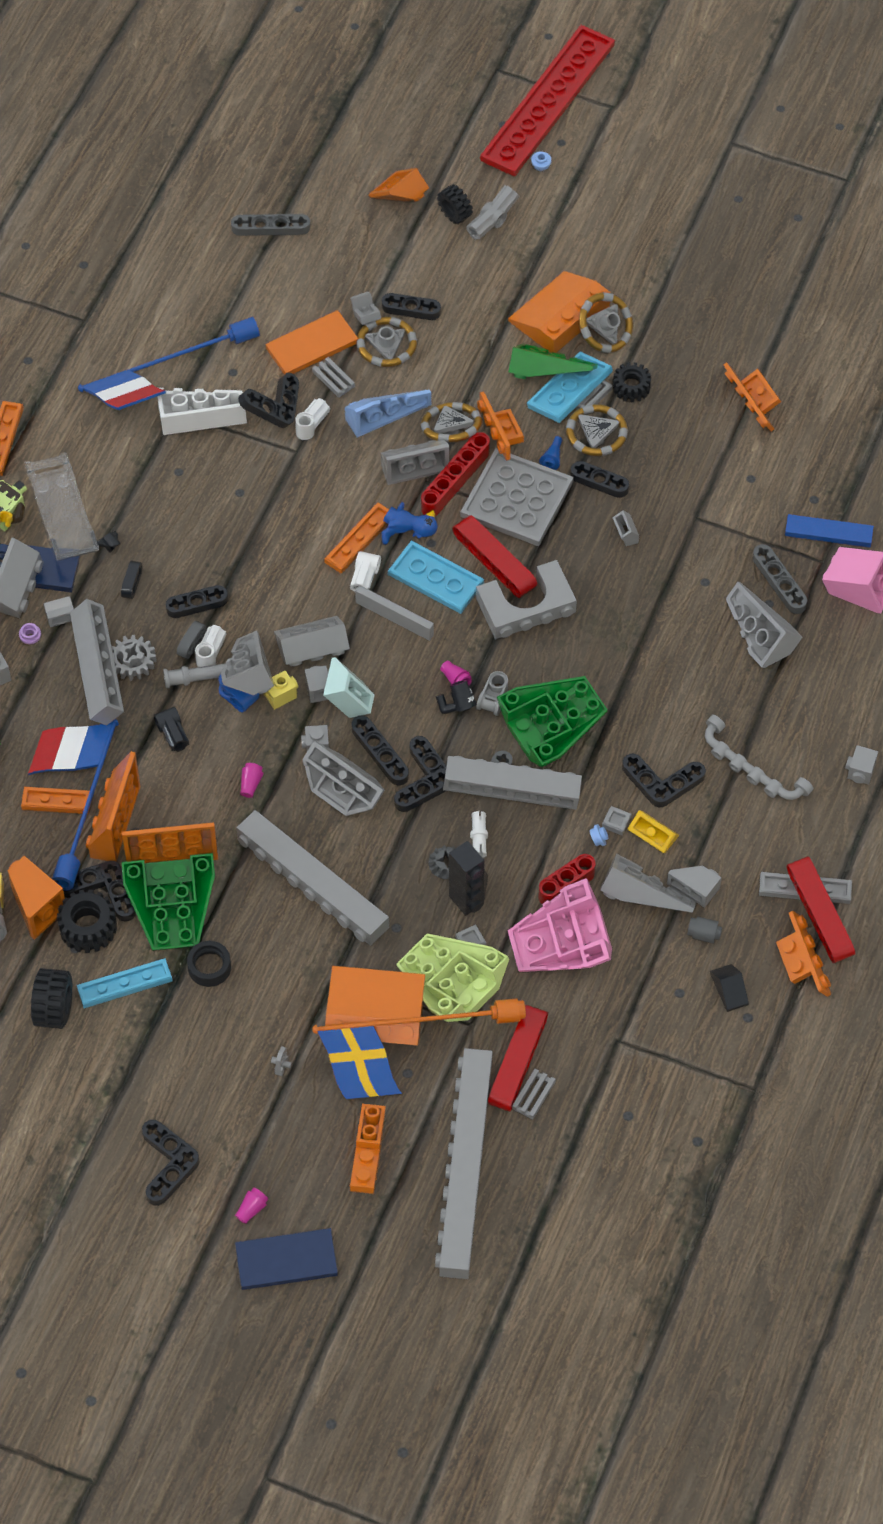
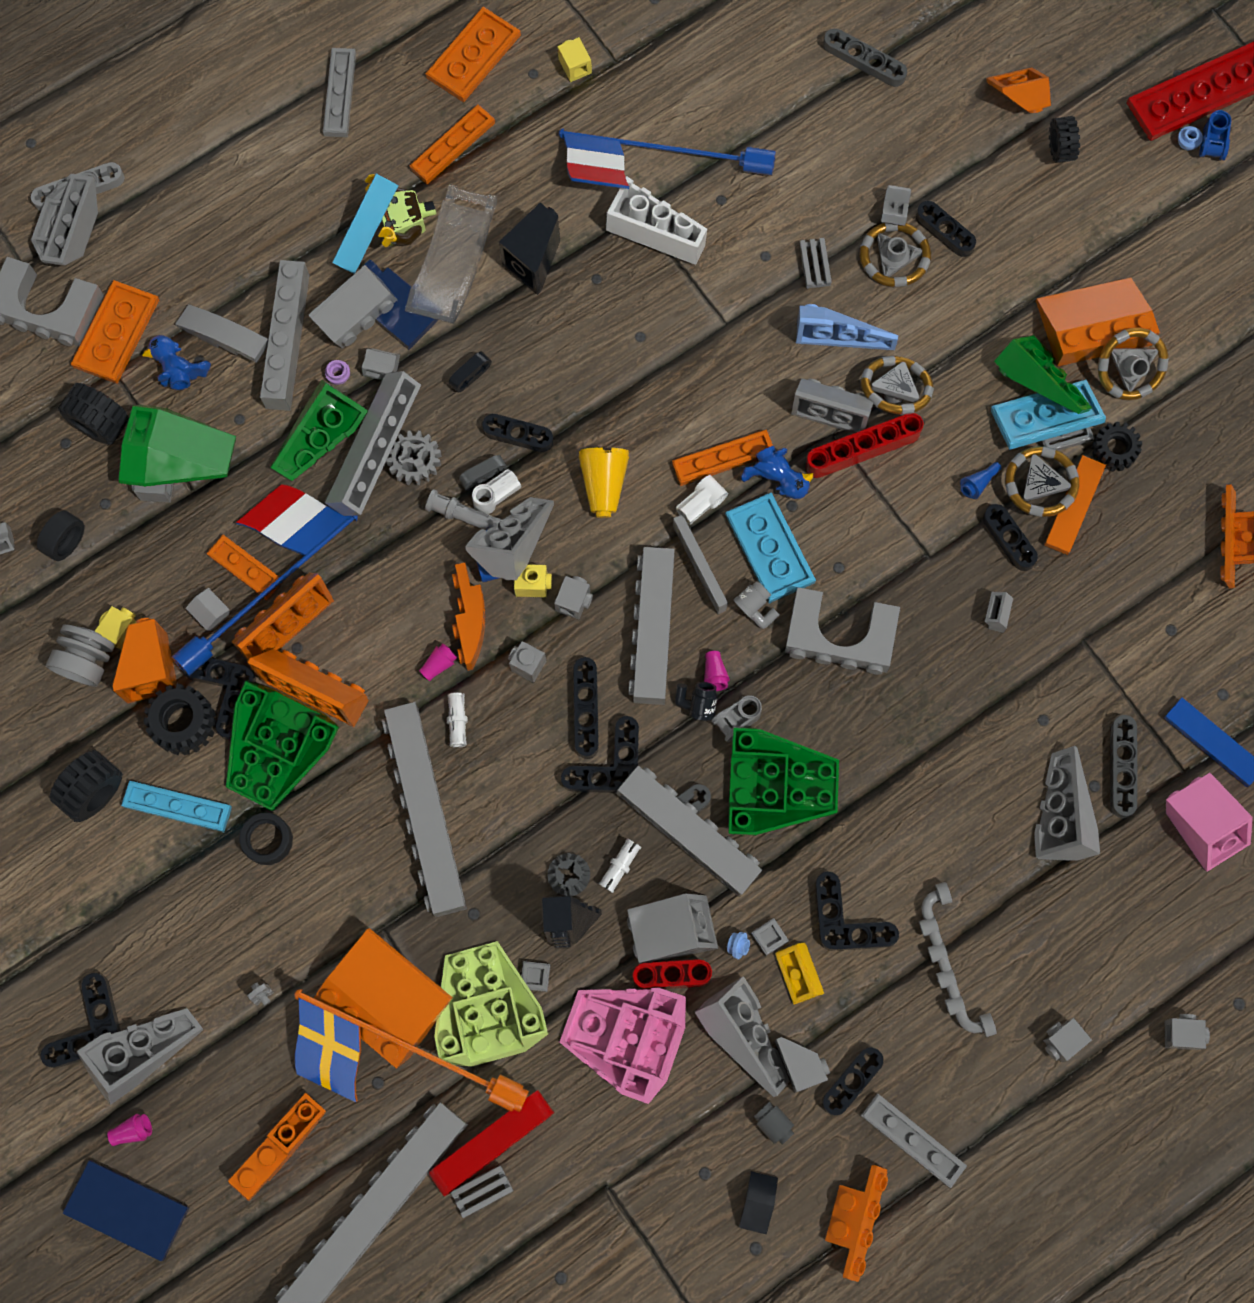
camera: 35 degrees right, 15 degrees up
(45, 676) = (319, 428): none -> green wedge
(51, 840) = (208, 610): none -> light grey piece
(55, 333) = (574, 59): none -> light yellow brick
(109, 541) = (476, 317): black piece -> none
(118, 472) = (532, 246): none -> black slope
(171, 726) = (400, 552): black piece -> none
(215, 1157) = (129, 1056): none -> light grey wedge
(253, 402) = (731, 266): black beam -> none
(255, 738) = (471, 624): none -> orange slope
(284, 593) = (603, 478): none -> yellow cone
(292, 809) = (457, 720): none -> white pin
(309, 419) = (762, 296): white piece -> none
(312, 343) = (819, 213): orange tile -> none
(312, 640) = (598, 544): light grey slope -> none
(340, 781) = (523, 721): light grey wedge -> none
(347, 691) = (593, 624): light aqua slope -> none
(390, 670) = (653, 626): none -> light grey brick
(449, 613) = (752, 600): none -> light grey piece
(493, 213) = (1098, 171): light grey piece -> none
(494, 556) = (842, 562): red beam -> none
(502, 426) = (948, 422): orange bracket -> none
(517, 497) = (910, 507): light grey plate -> none
(543, 849) = (672, 928): none -> light grey slope
(559, 149) = (1216, 139): none -> blue piece
(633, 447) = (1069, 521): none -> orange tile
(732, 882) = (871, 1070): none -> black beam
(820, 909) = (908, 1183): red beam -> none

